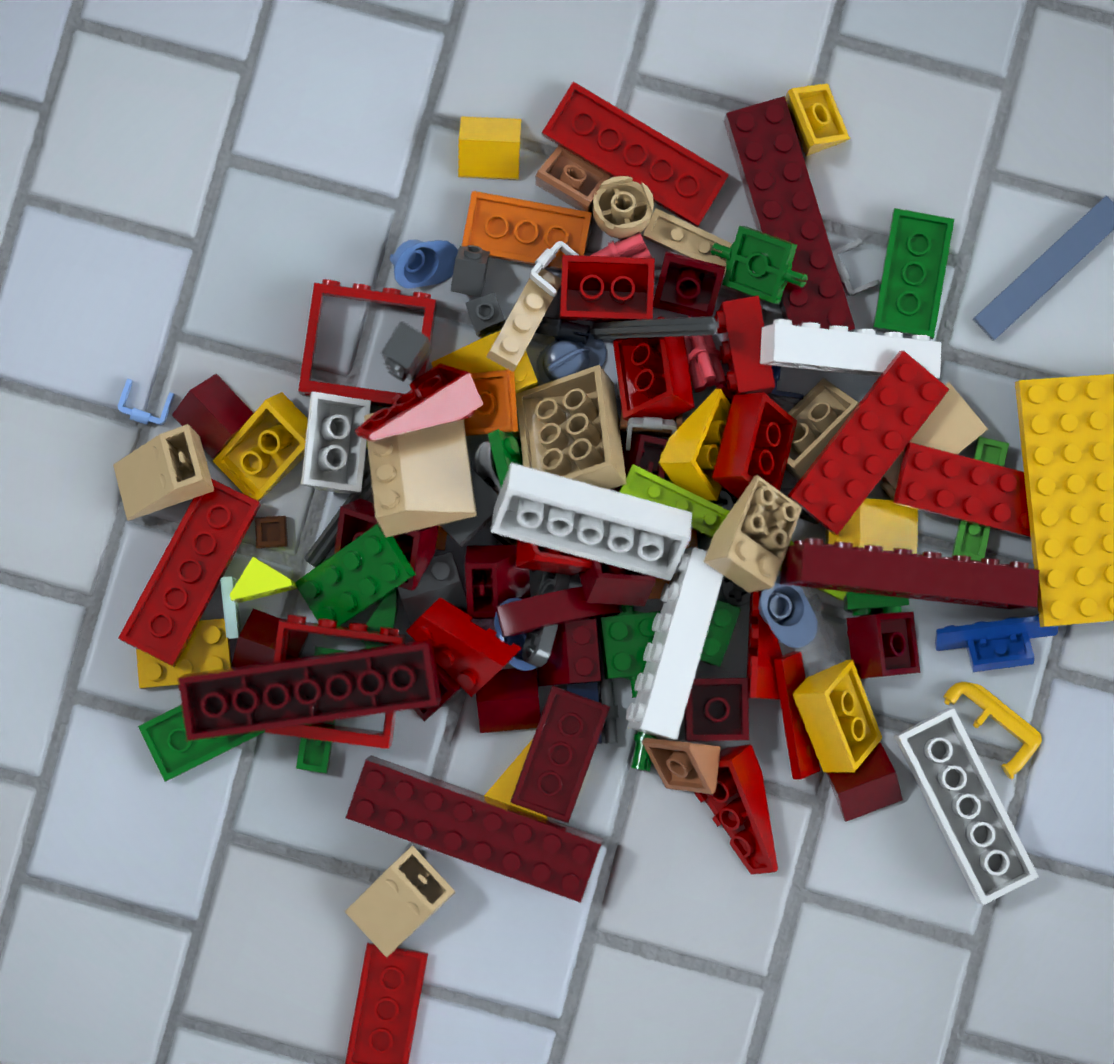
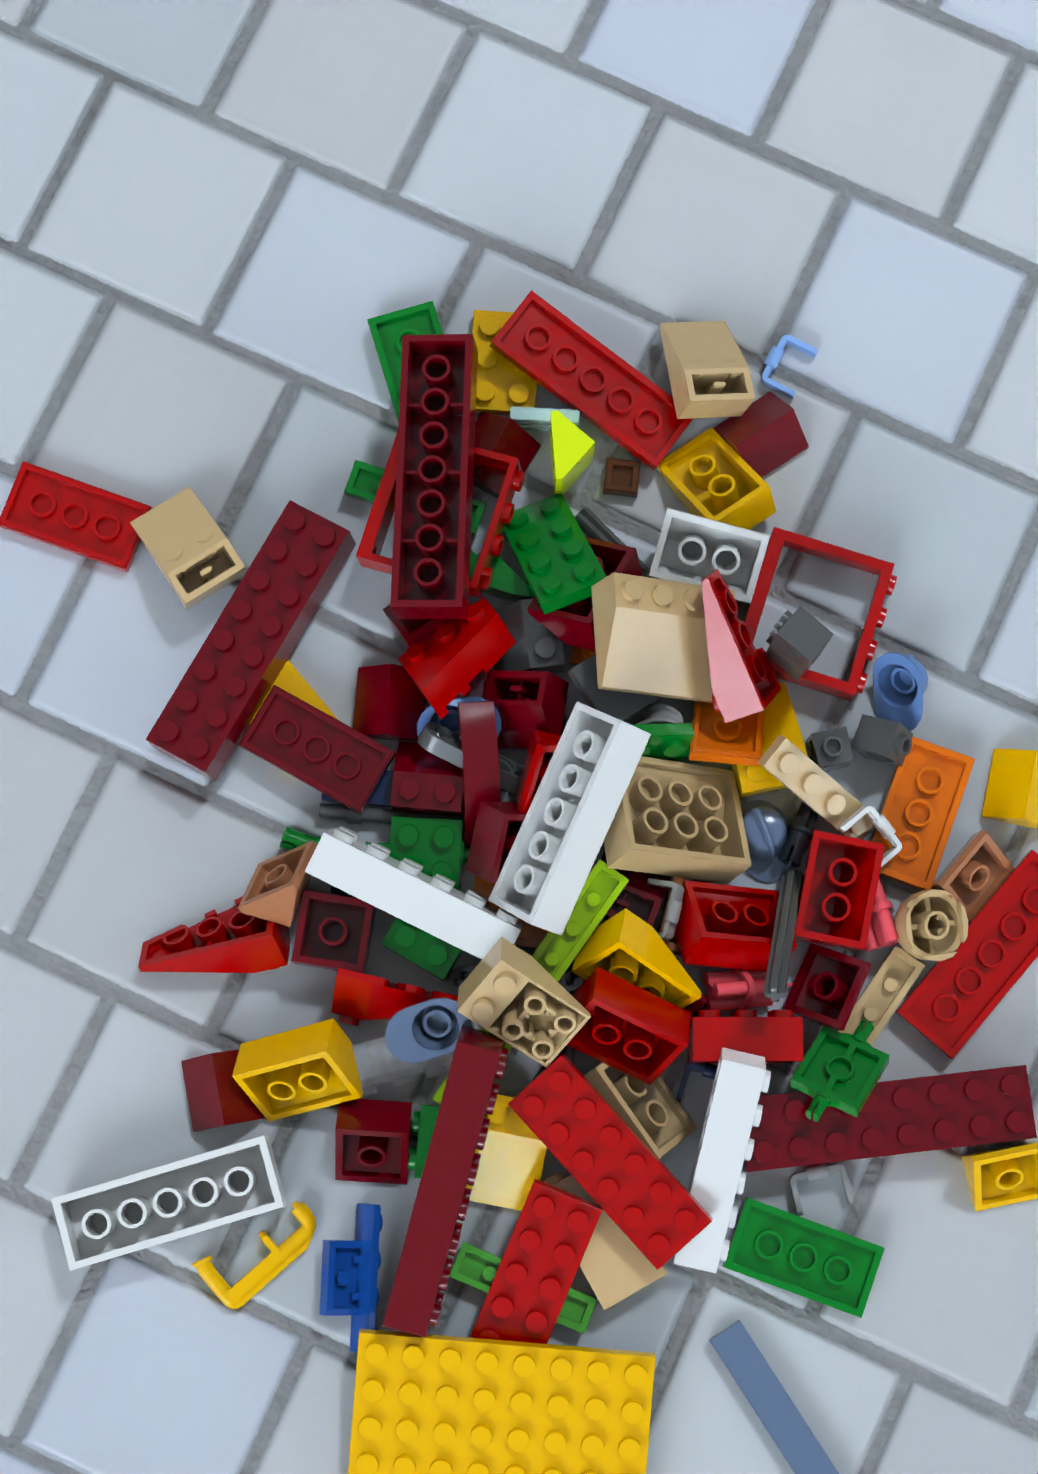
camera: 100 degrees right, 5 degrees down
(789, 677) = (356, 1021): red tile -> none

